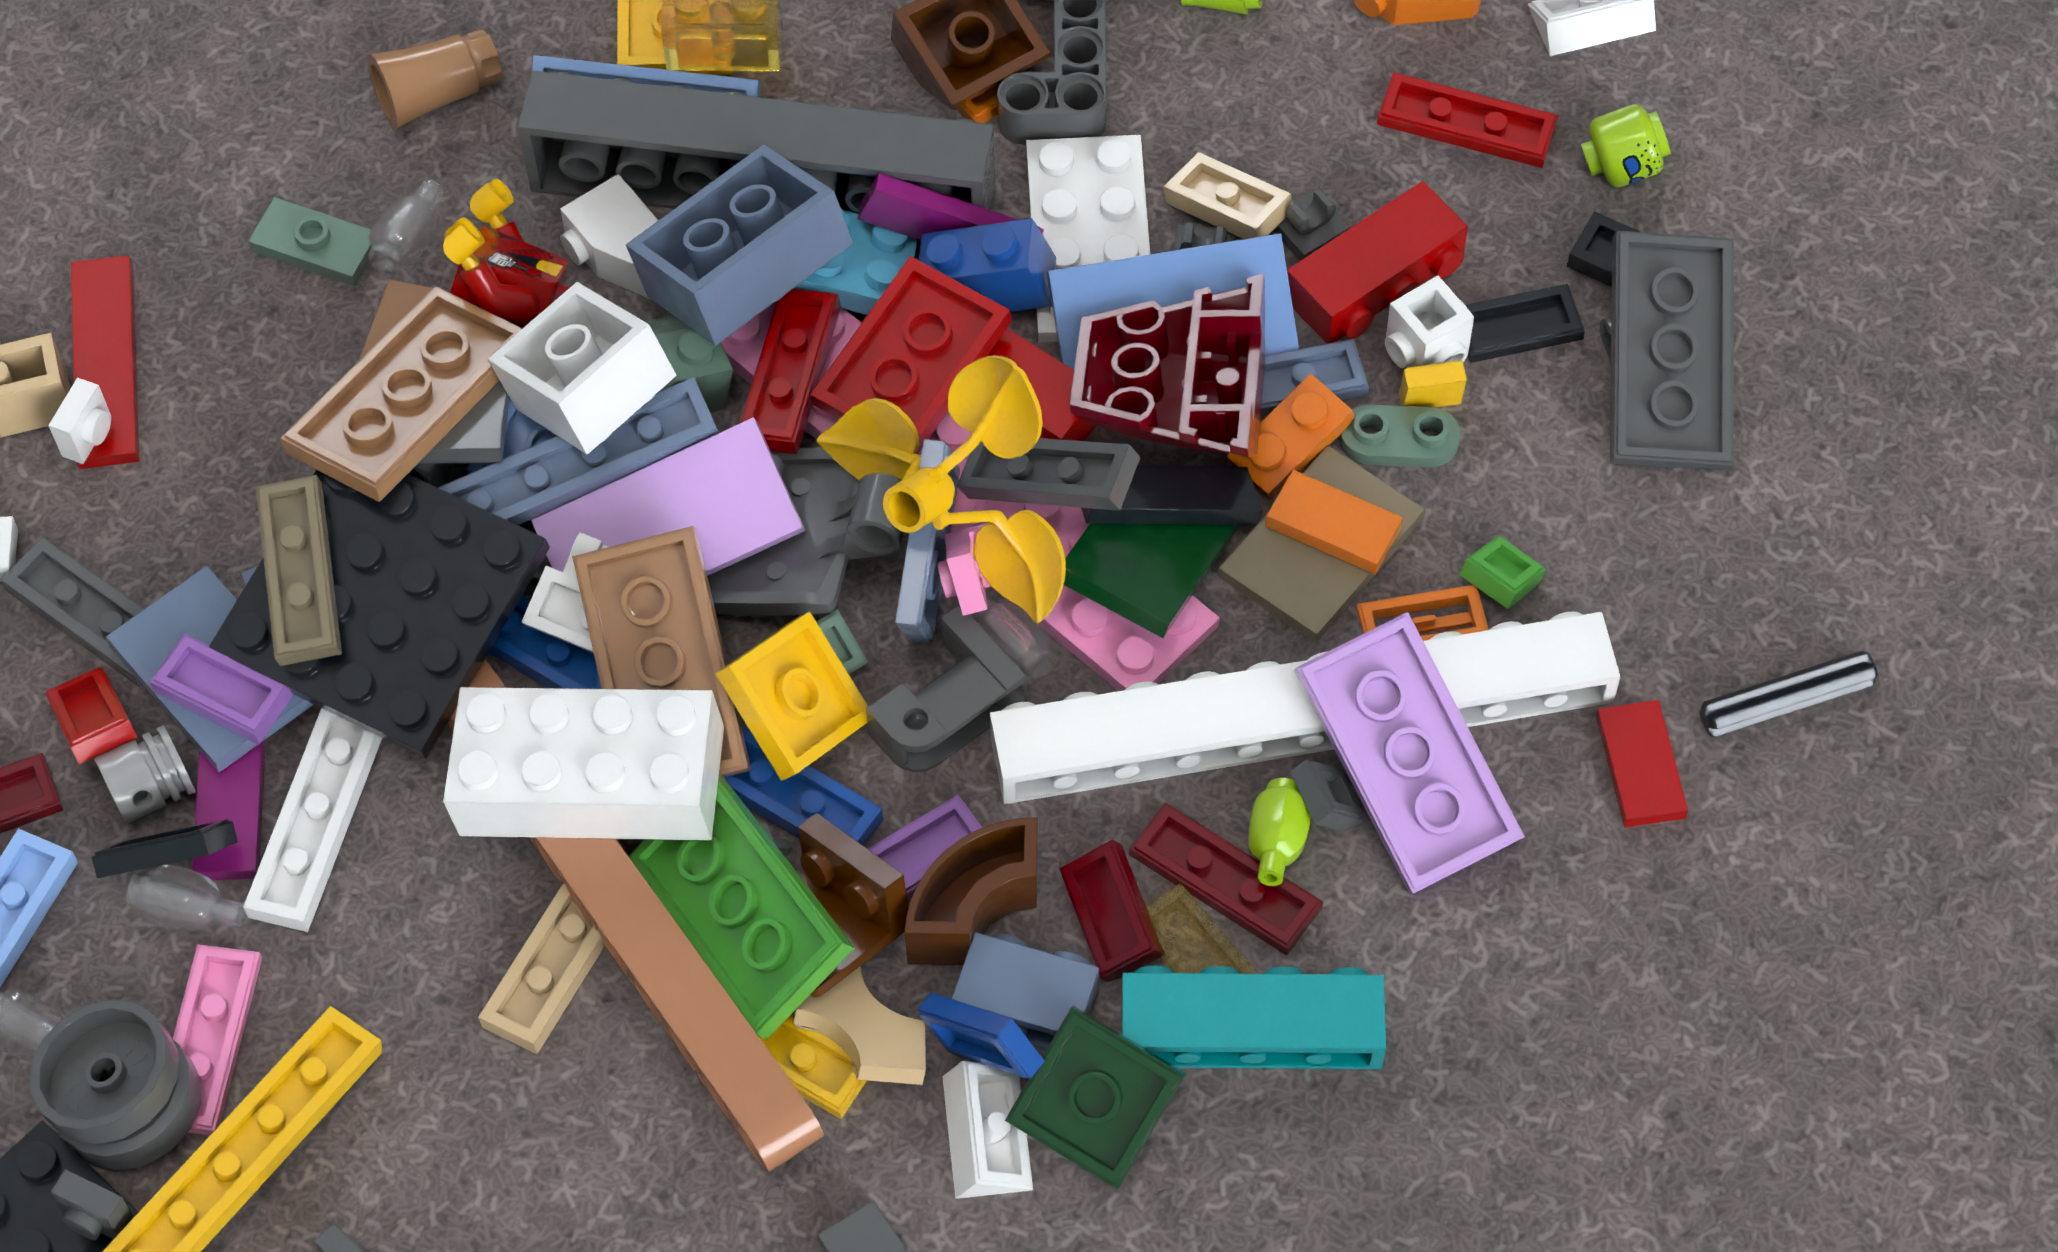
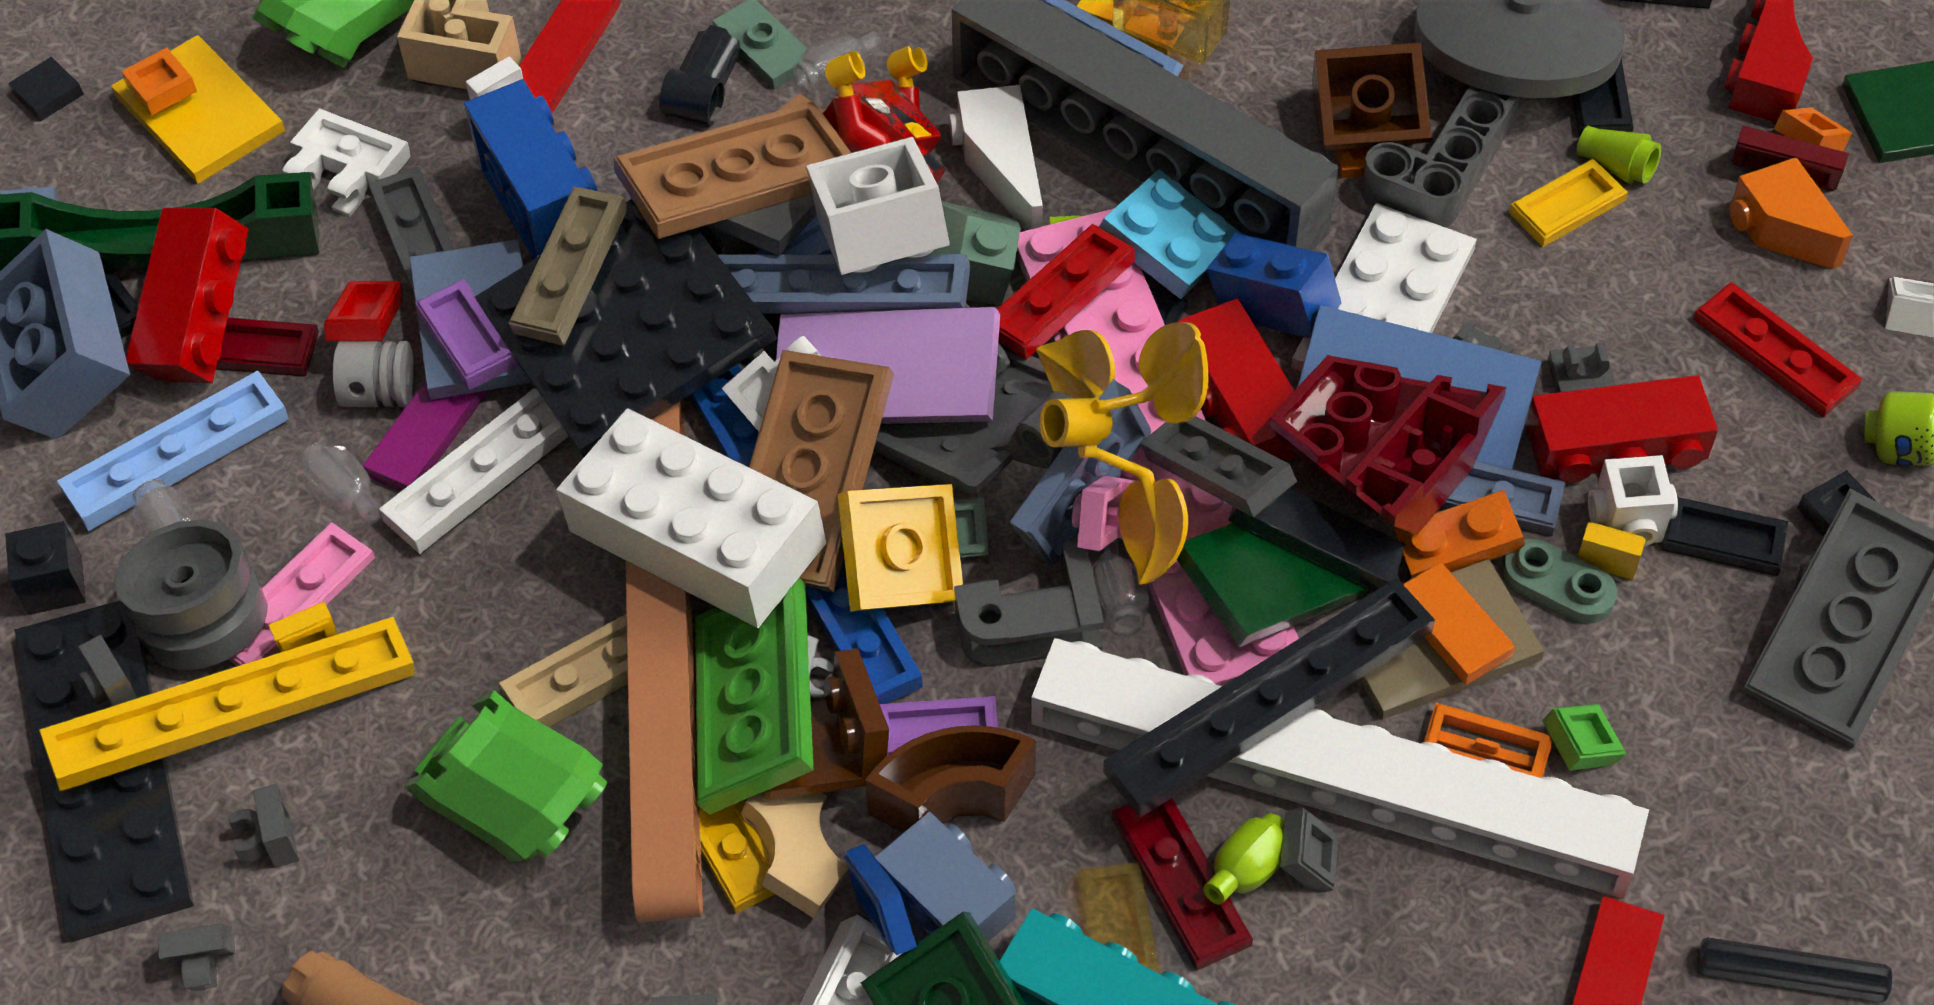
camera: 30 degrees right, 5 degrees down
(164, 848) = (348, 434): black tile -> none
(176, 489) = (525, 160): none -> blue brick
(250, 1064) = (303, 627): none -> yellow tile
(278, 316) = (701, 80): none -> black piece
(555, 1103) = (507, 779): none -> bright green brick
(740, 244) = (1071, 170): sand blue brick -> none
(913, 347) = (1184, 289): red plate -> none
(919, 210) = (1242, 212): magenta tile -> none
(1111, 911) = (1064, 855): dark red tile -> none
(1201, 58) = (1568, 202): none -> yellow tile
(1221, 673) = (1267, 697): none -> black plate
(1227, 197) = (1520, 318): tan plate -> none
(1408, 753) = (1399, 848): lavender tile -> none

